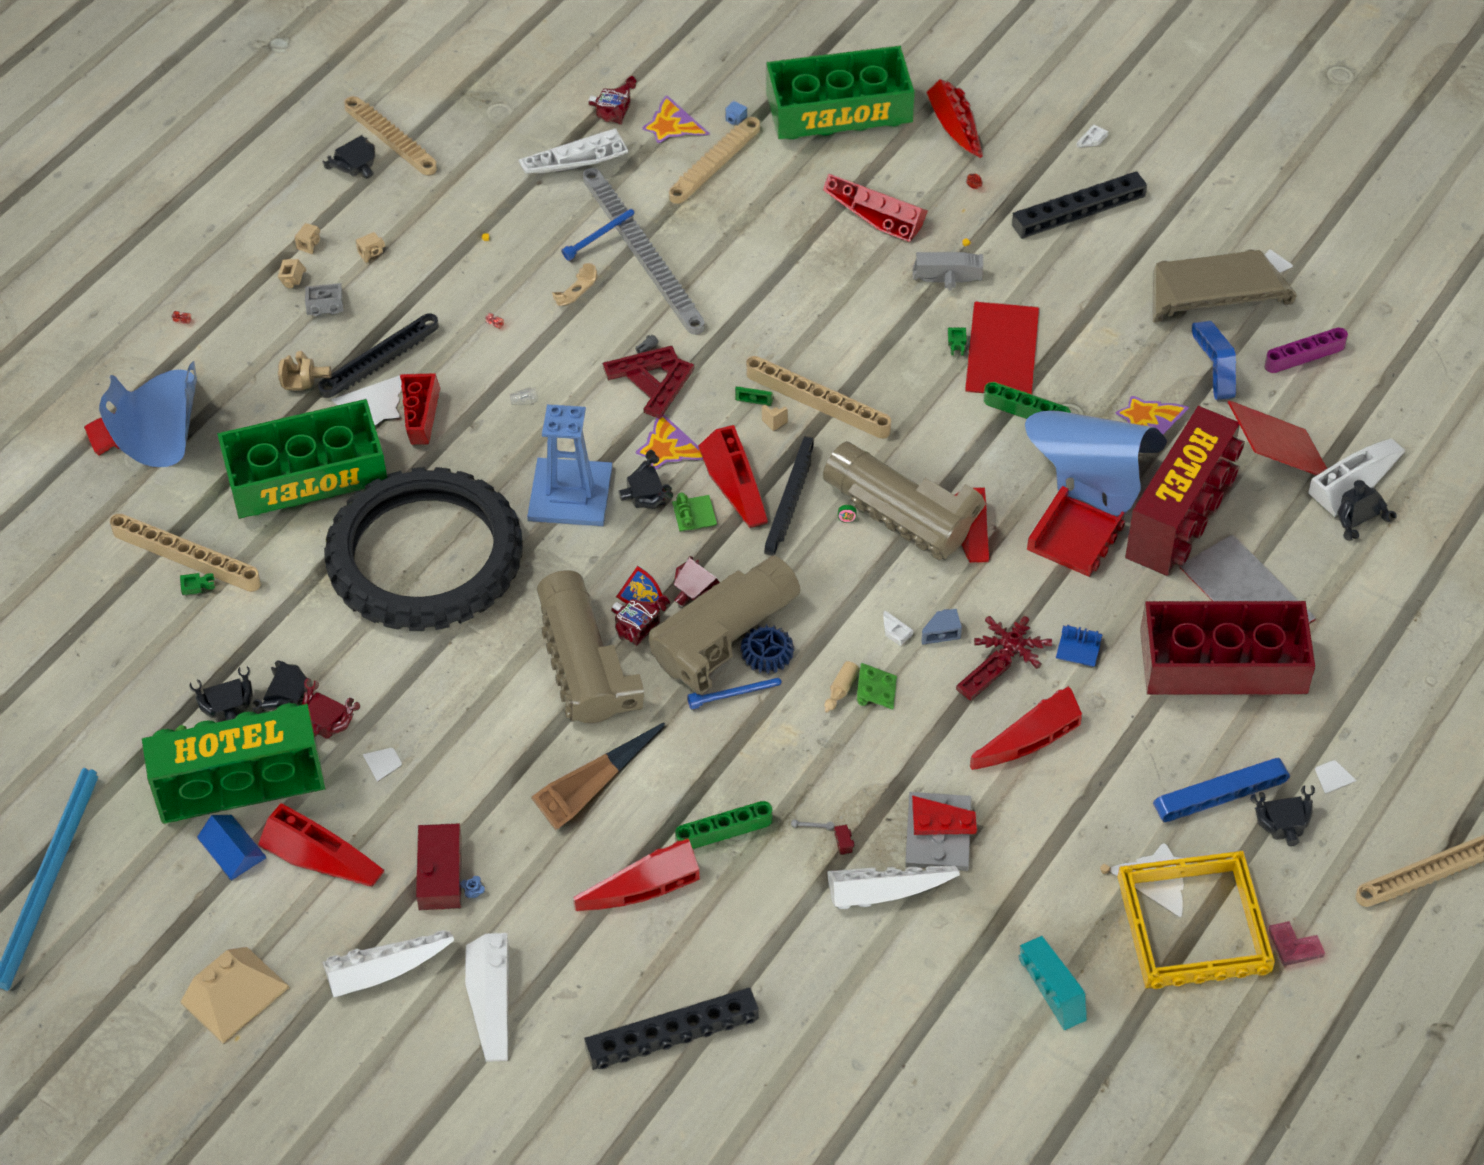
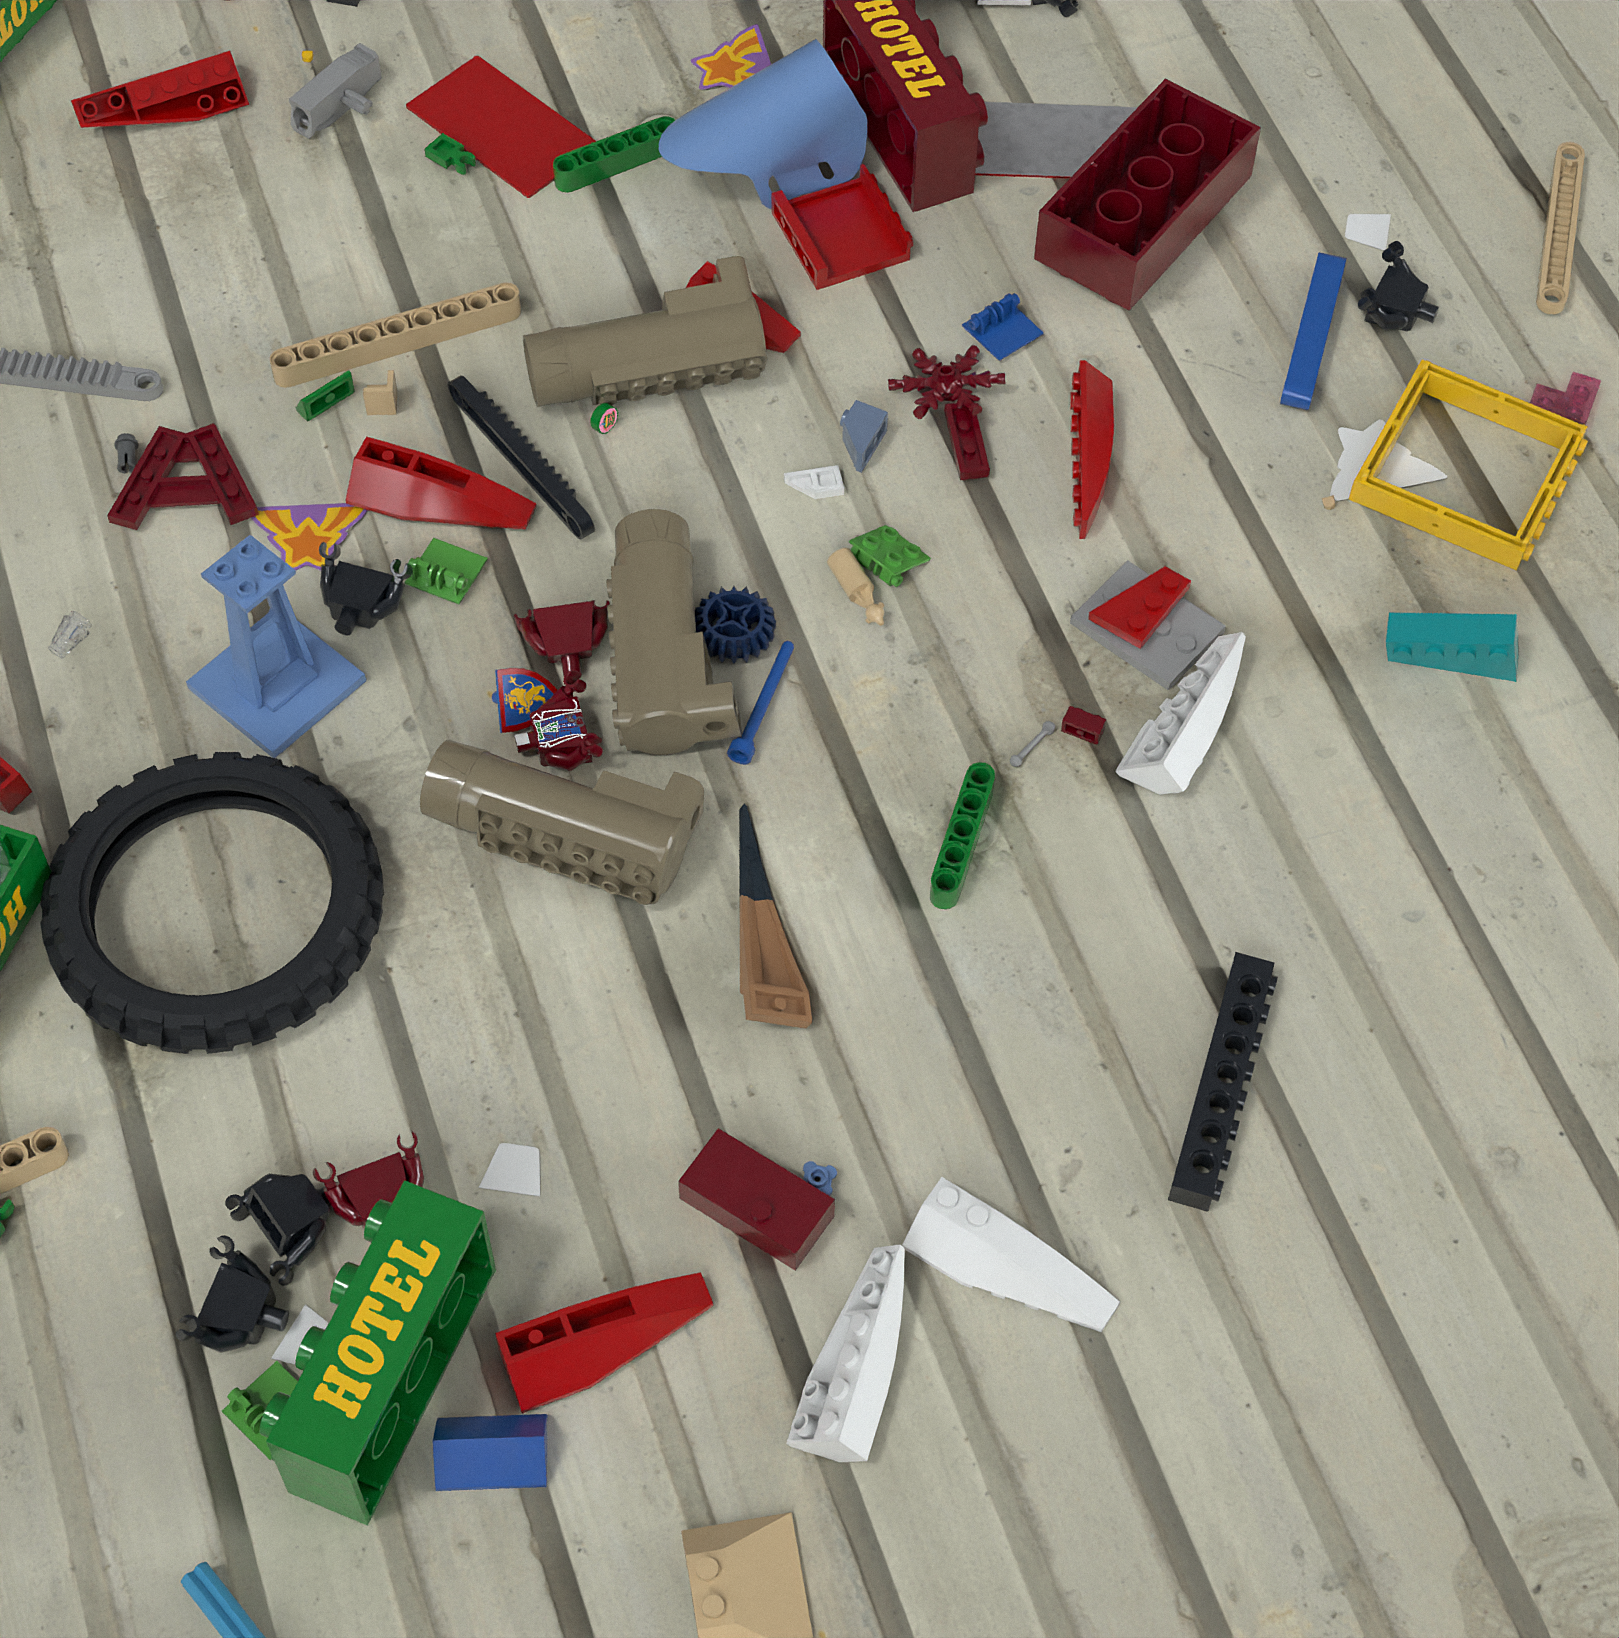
camera: 55 degrees left, 5 degrees up
(643, 880) = (984, 948): red wedge -> none

